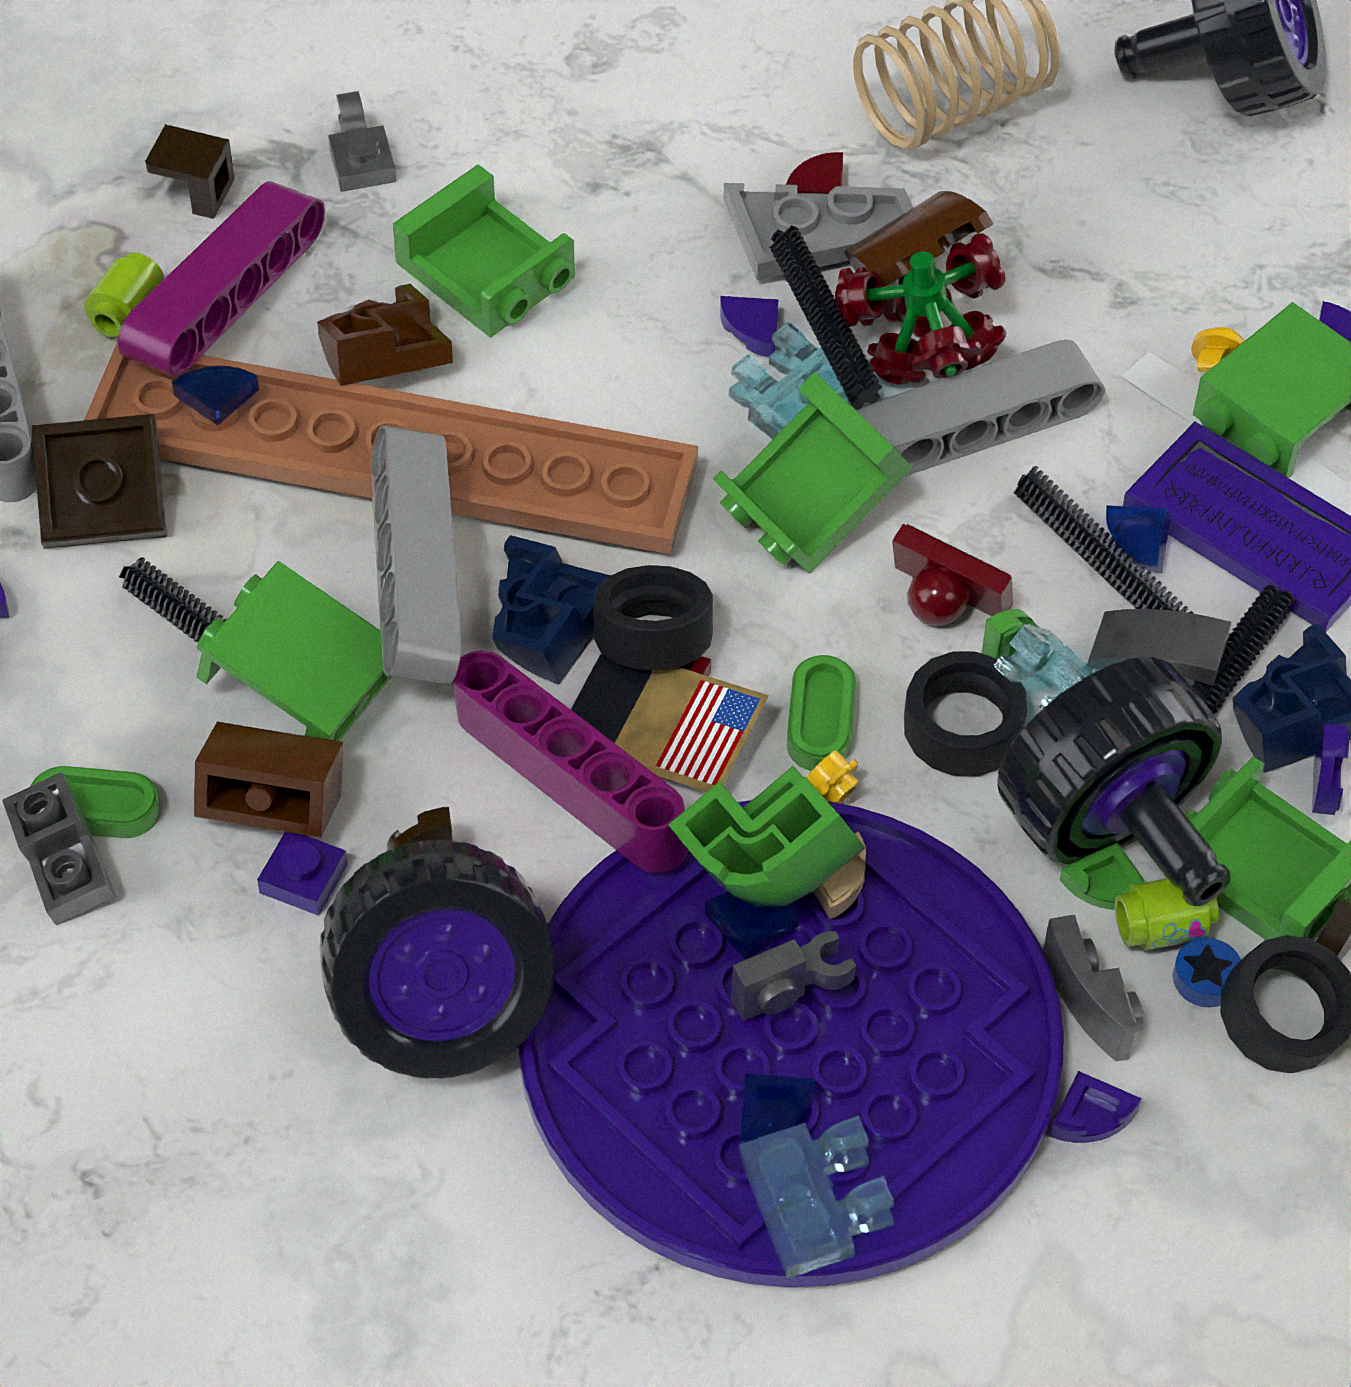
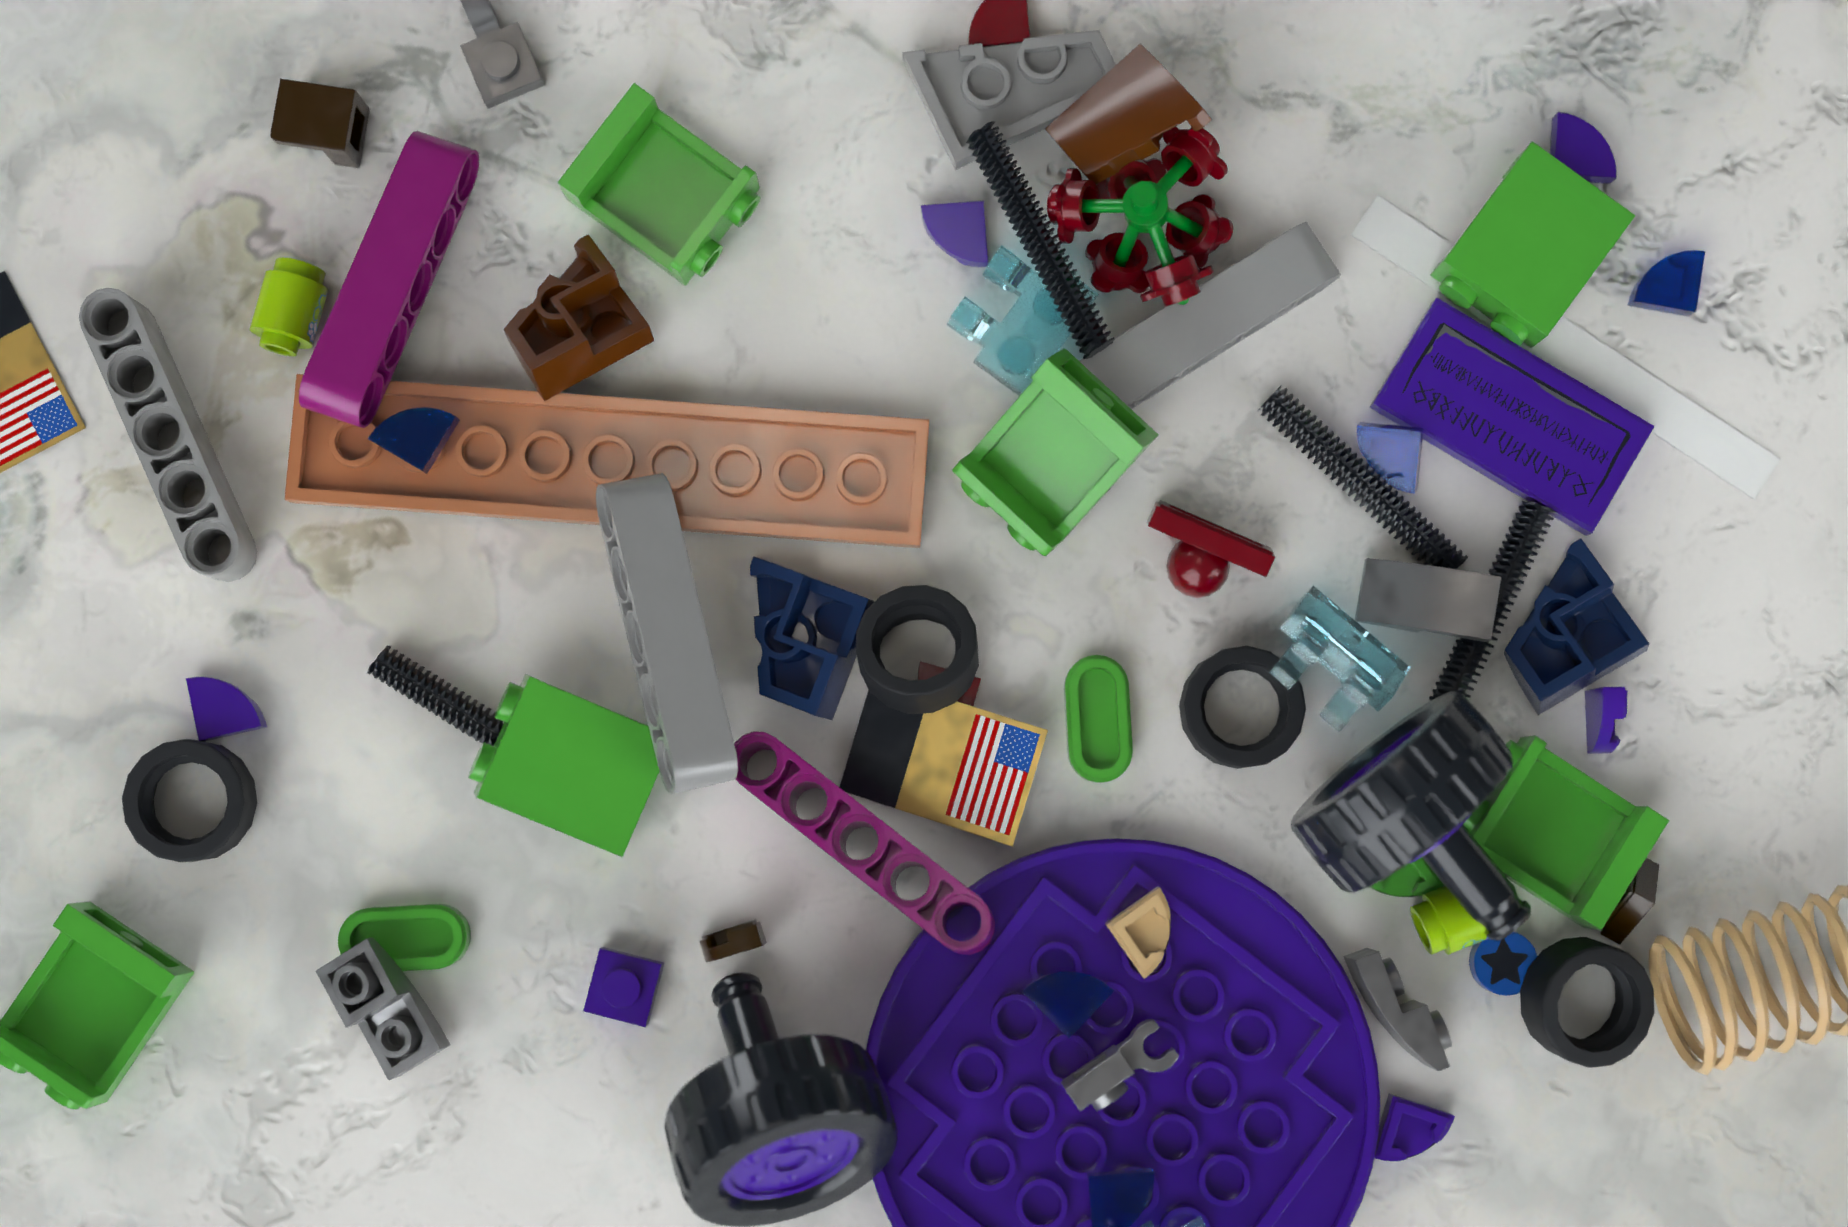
camera: 10 degrees left, 30 degrees up
(99, 481) = (319, 560): dark brown plate -> none
(268, 779) = (571, 905): reddish brown brick -> none
(773, 846) = (1081, 945): bright green brick -> none
(834, 777) = (1119, 806): yellow plate -> none
(1001, 630) = (1277, 604): bright green tile -> none
(1213, 345) = (1455, 204): yellow plate -> none

